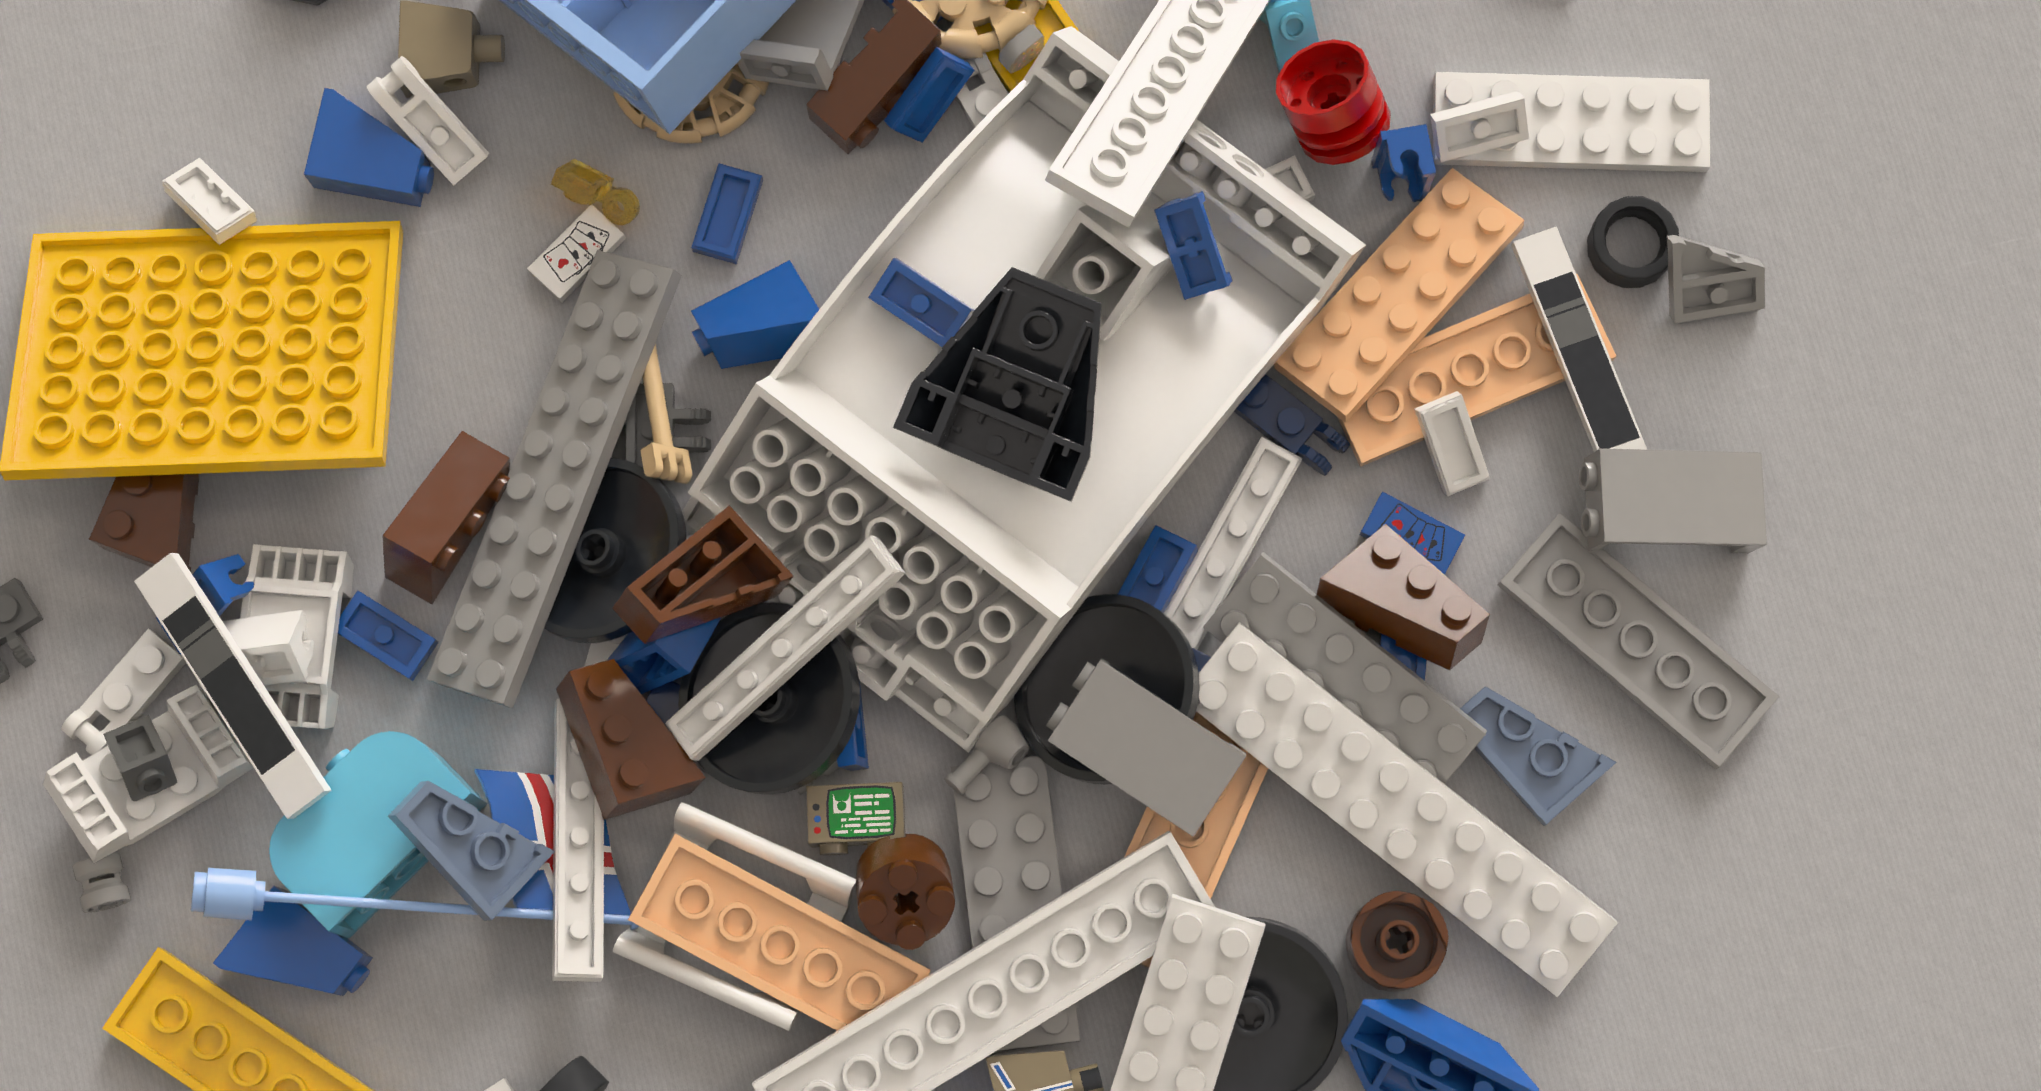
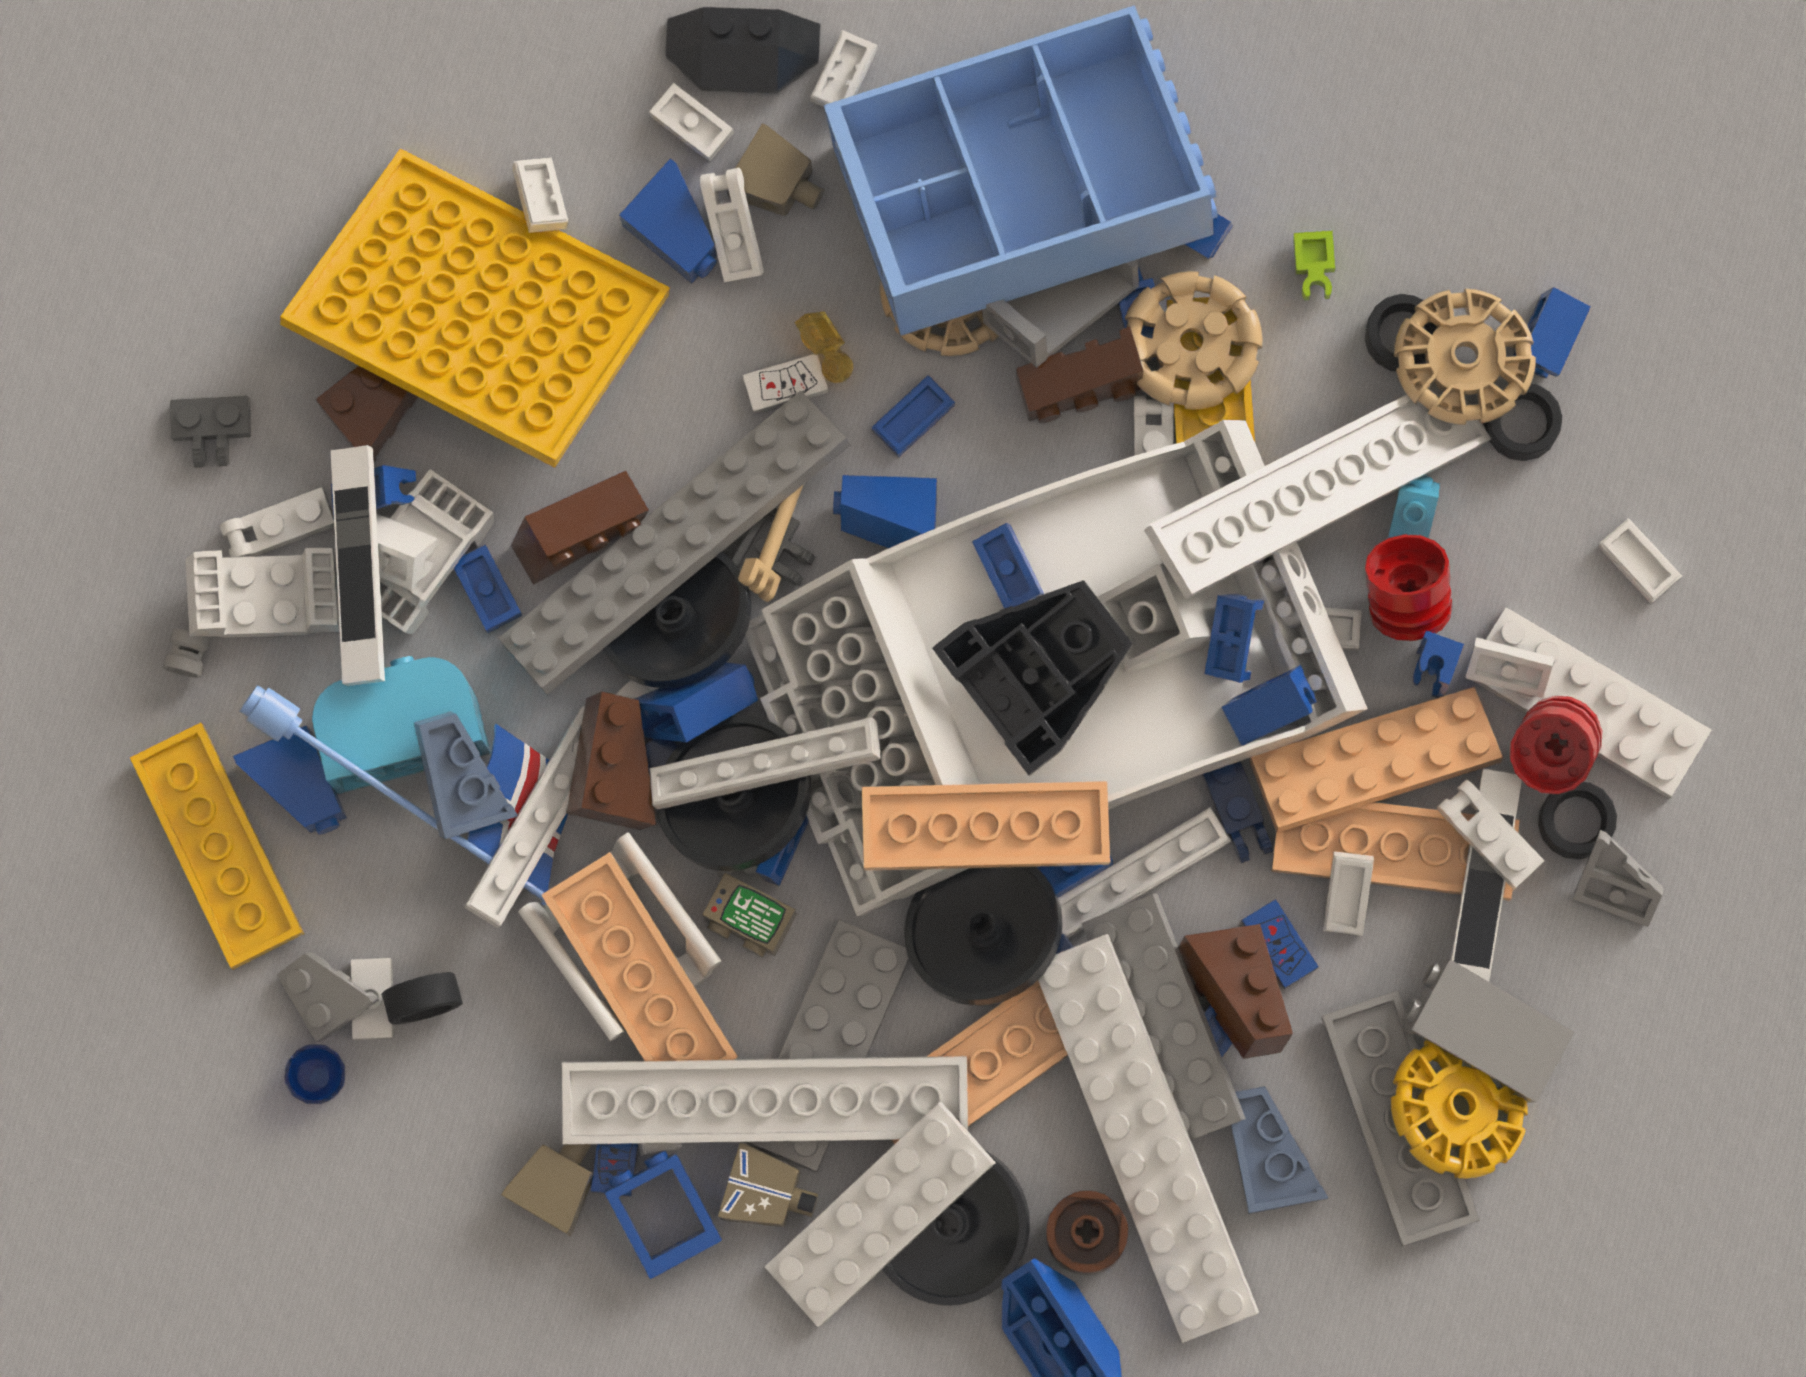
camera: 35 degrees right, 0 degrees up
(141, 758) = (264, 580): dark grey bracket -> none
(325, 42) = (691, 122): none -> white plate
(703, 579) = (733, 680): reddish brown wedge -> none
(904, 890) = (751, 988): reddish brown brick -> none
(929, 95) = (1111, 412): blue tile -> none
(999, 744) = (881, 921): light grey bar -> none
(1022, 49) = (1199, 416): light grey tile -> none
(1057, 578) = (985, 825): none -> light nougat plate
(1144, 746) = (983, 984): light grey panel -> none
(1270, 294) = (1270, 705): none -> blue hinge
(1563, 302) = (1491, 835): none -> white plate
(1591, 194) = (1542, 760): none -> red wheel
(1672, 609) = (1447, 1125): none -> yellow plate

